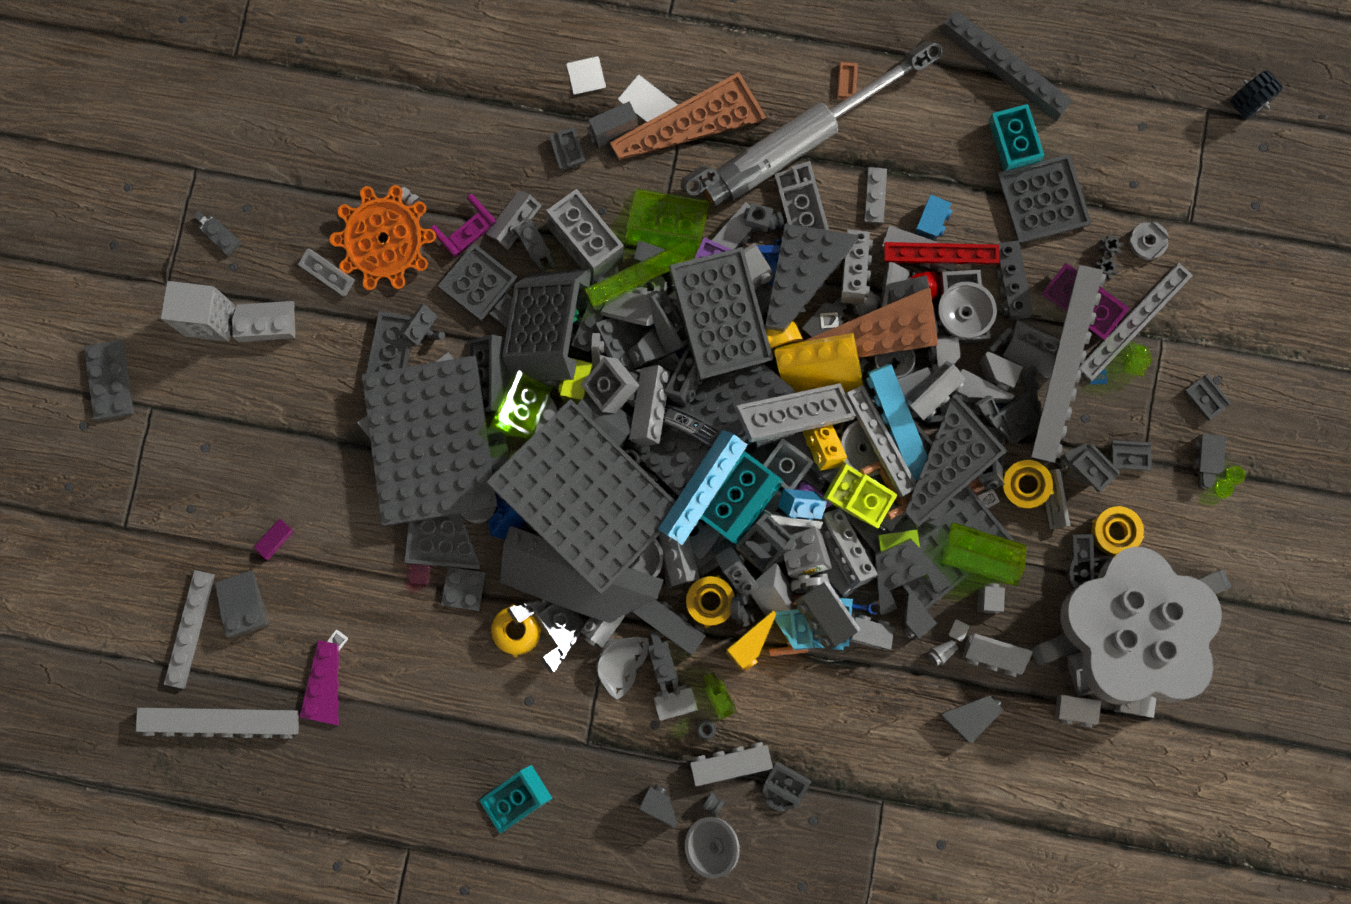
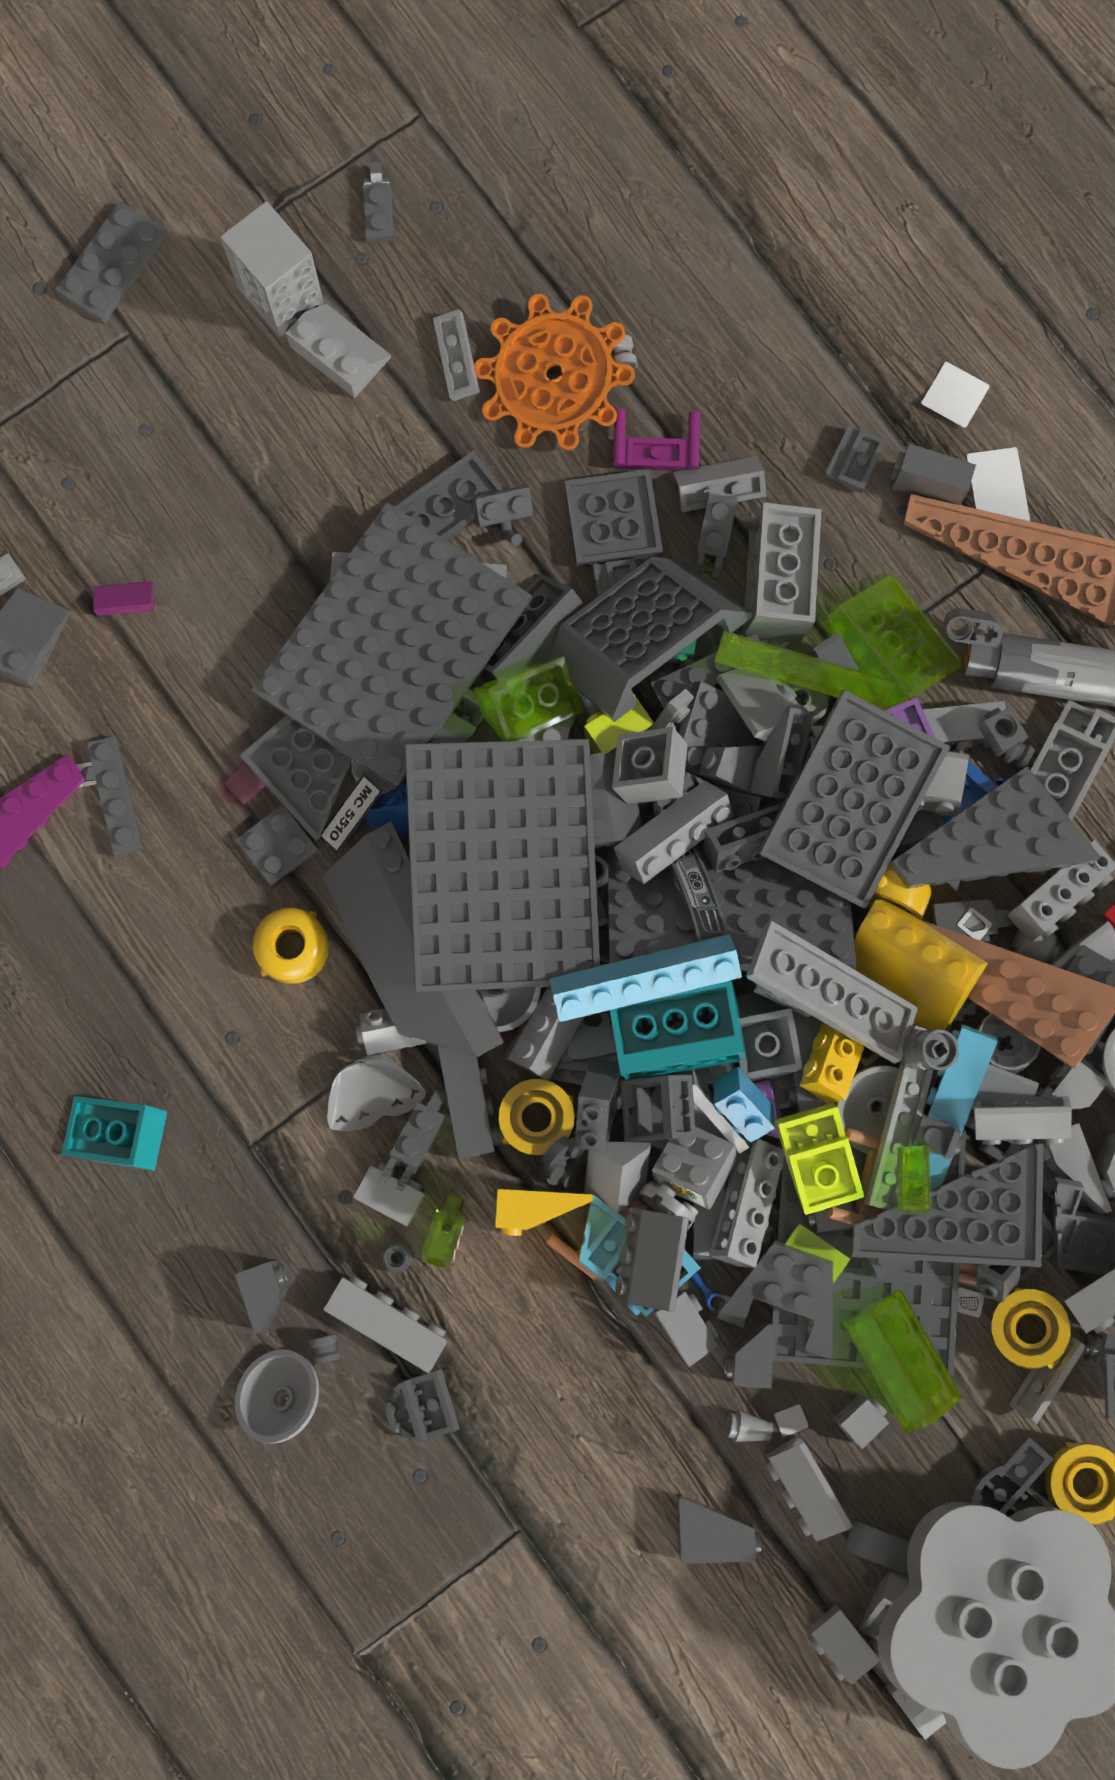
camera: 40 degrees right, 0 degrees up
(361, 638) = (115, 796): none -> dark grey plate
(485, 540) = (350, 813): none -> sticker
(557, 622) = (342, 984): dark grey wing -> none
(864, 397) = (930, 1049): none -> dark grey wheel
(905, 435) = (939, 1136): none -> dark grey bracket
(913, 464) = (914, 1179): none -> clear neon green brick

